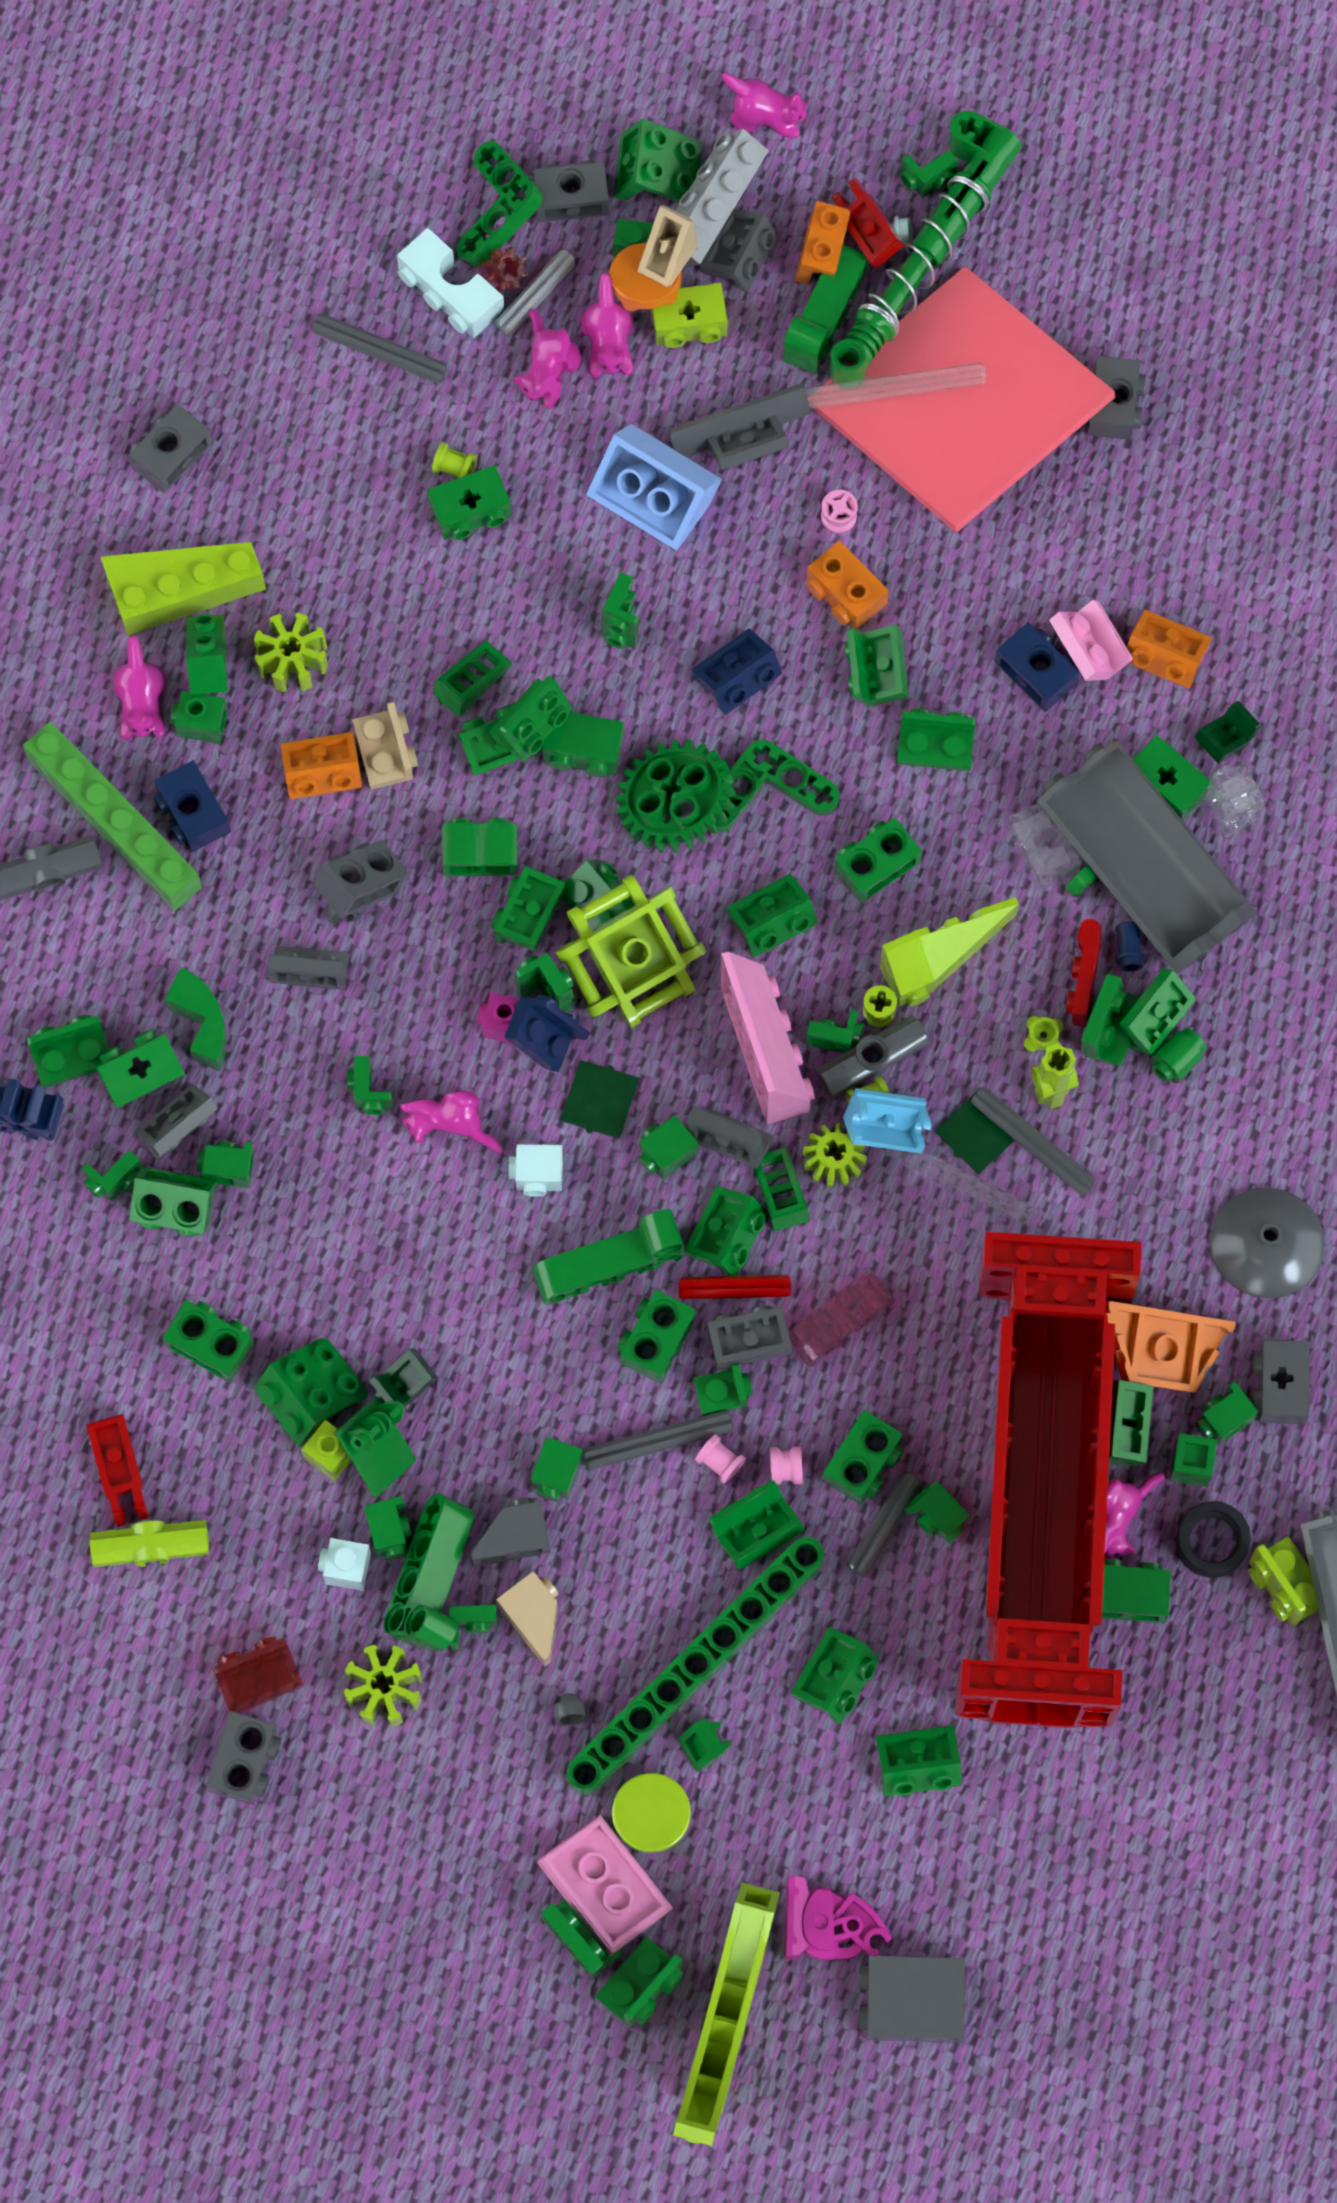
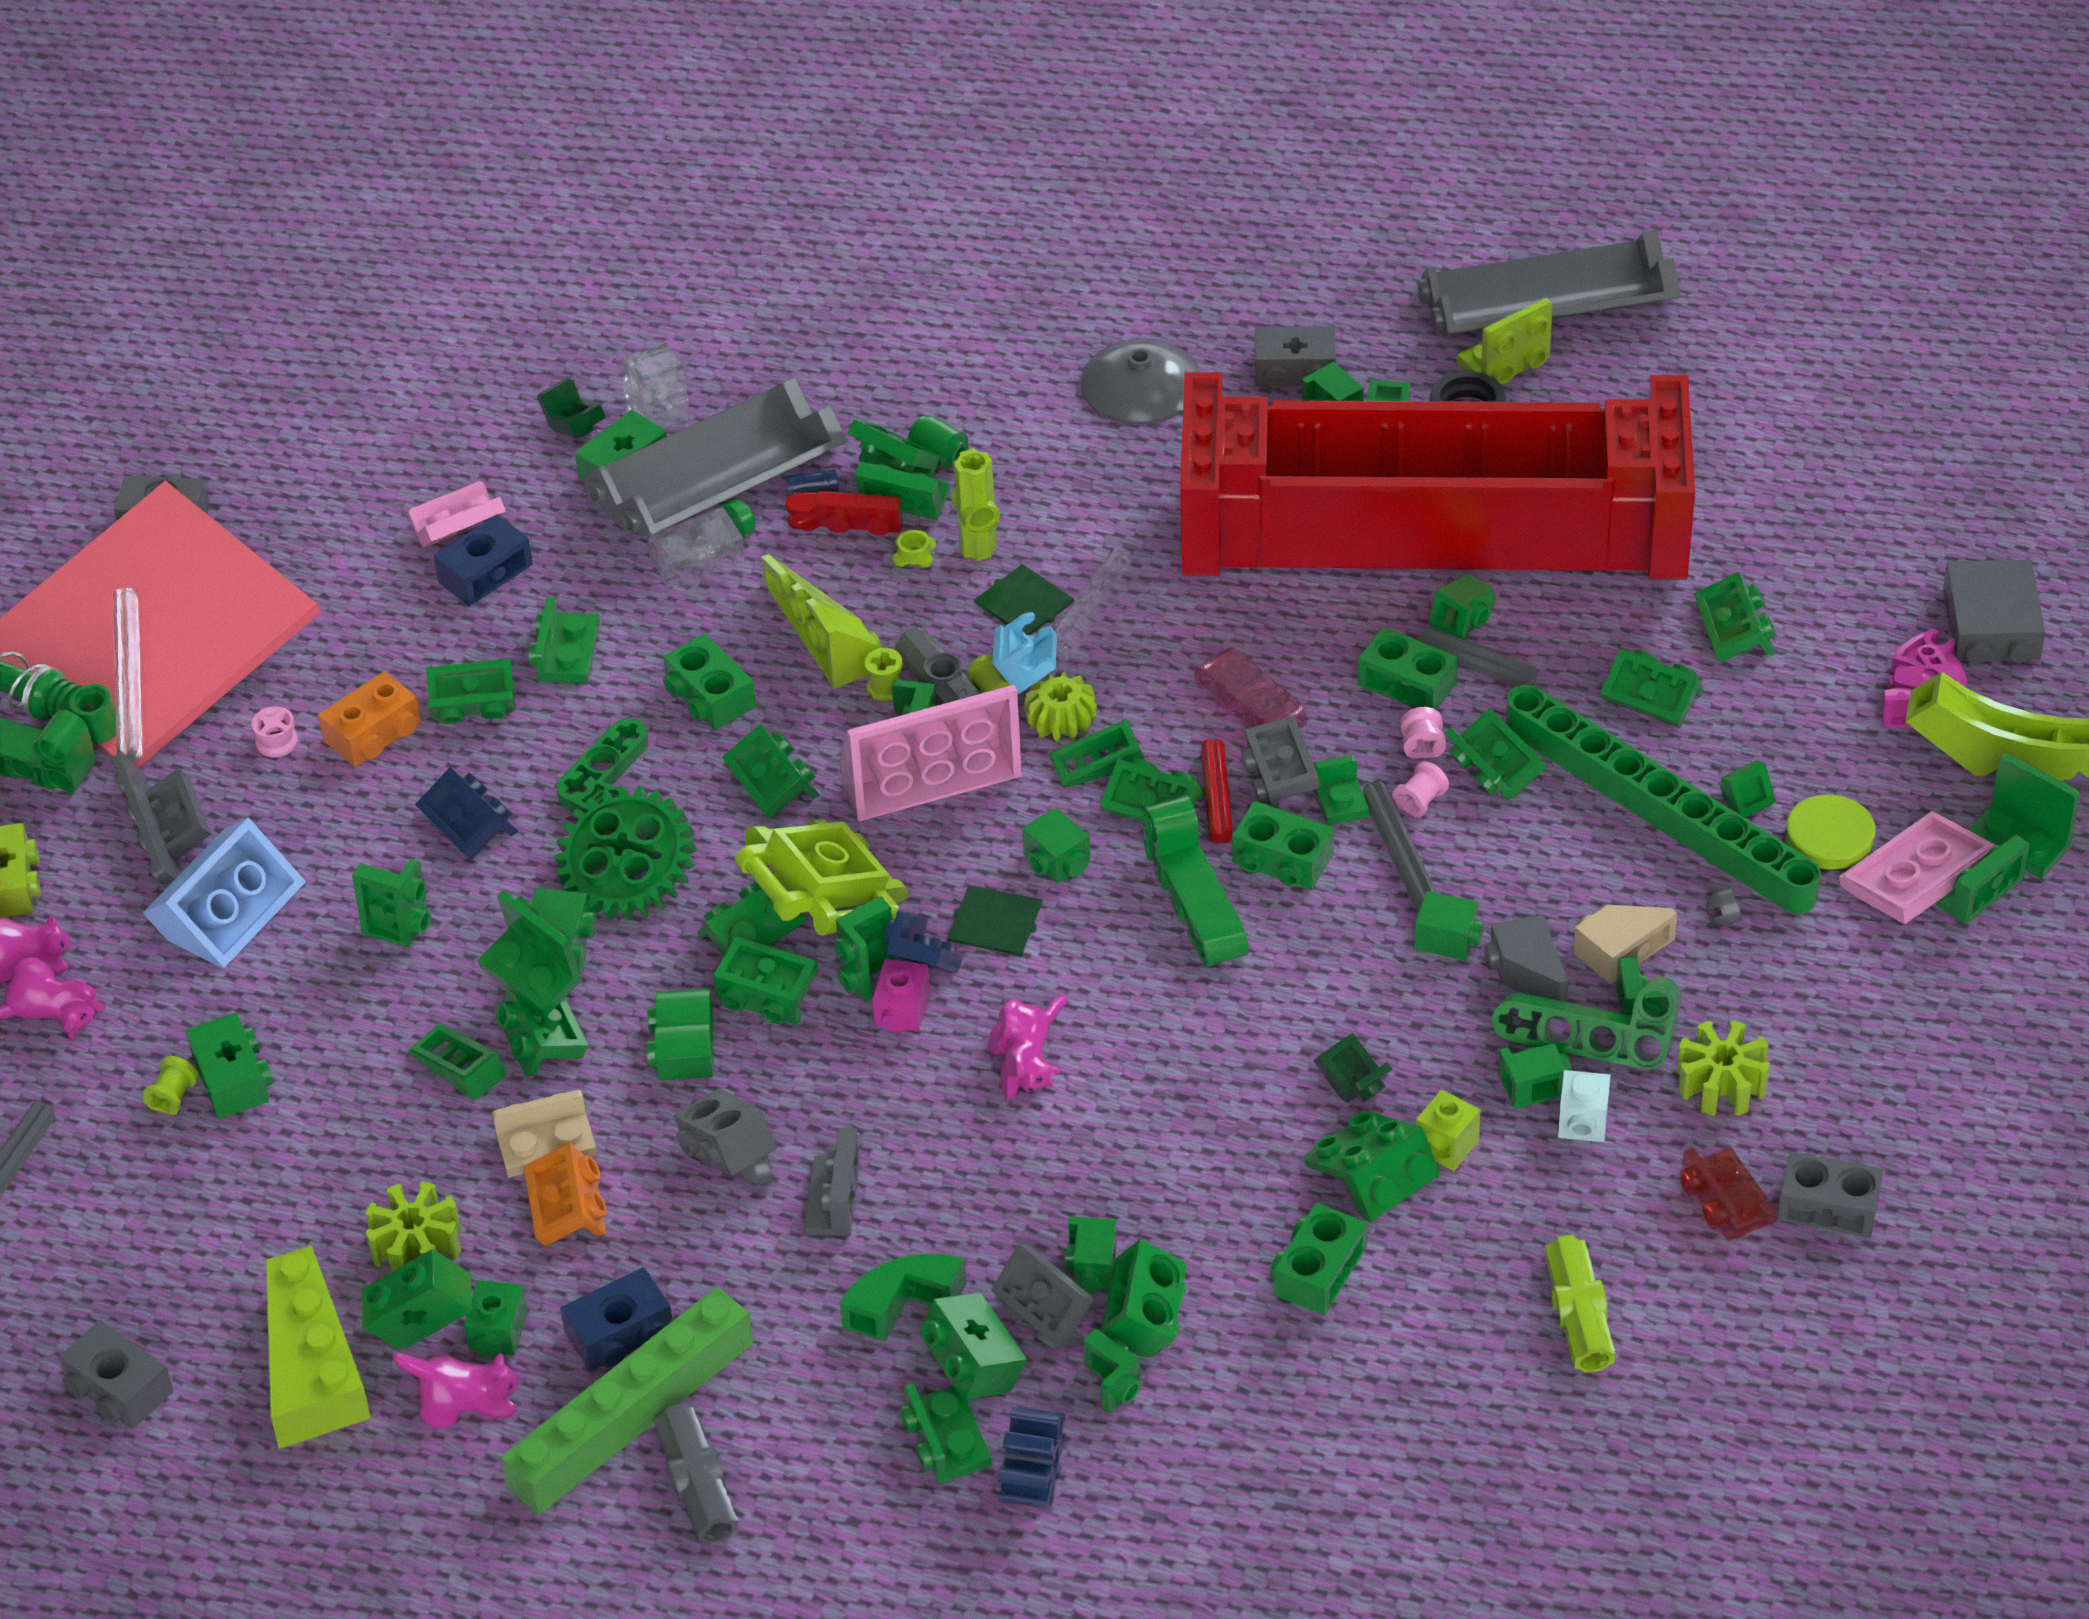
camera: 90 degrees left, 25 degrees down
(117, 1465) = (1486, 1344): red hinge -> none
(360, 1082) = (987, 1127): green bracket -> none
(377, 1443) = (1433, 1065): green hinge -> none
(537, 1169) = (1087, 959): light aqua brick -> none
(729, 1136) = (1047, 783): dark grey bracket -> none
(1033, 1141) = (1037, 551): dark grey axle -> none
(1167, 648) = (467, 457): orange bracket -> none

